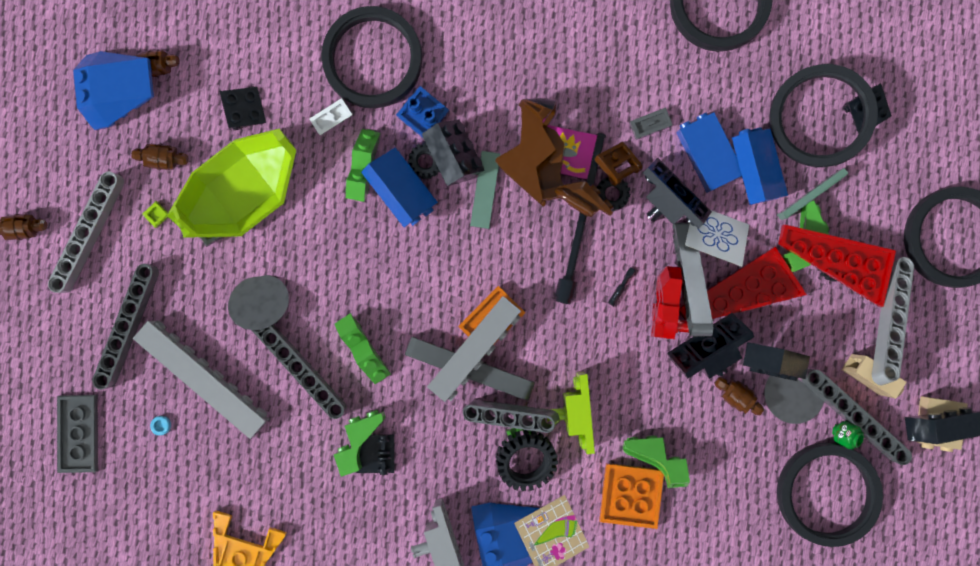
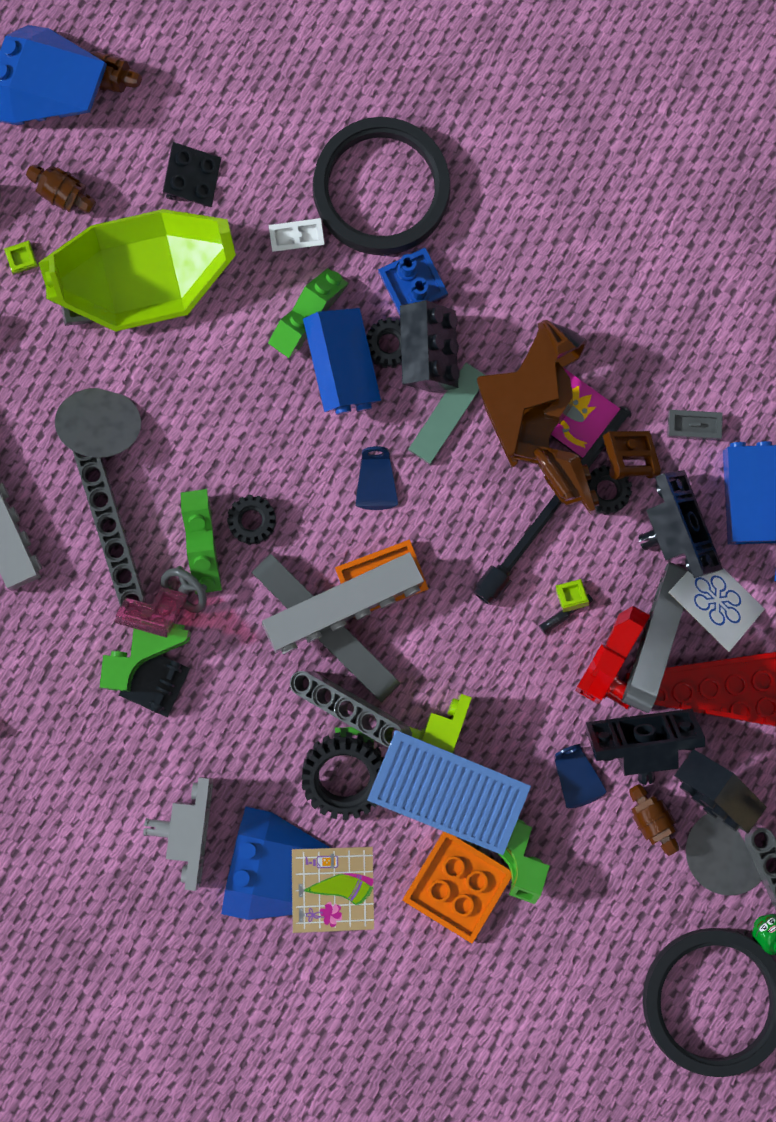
camera: 15 degrees right, 5 degrees down
(356, 415) = (155, 617): none -> clear pink plate
(367, 381) = (188, 583): none -> dark grey piece
(381, 328) = (235, 519): none -> black tyre
(458, 256) = (376, 481): none -> dark blue piece
(600, 443) = (449, 792): none -> medium blue window
(620, 273) = (572, 595): none -> lime tile
(677, 390) = (577, 777): none -> dark blue piece

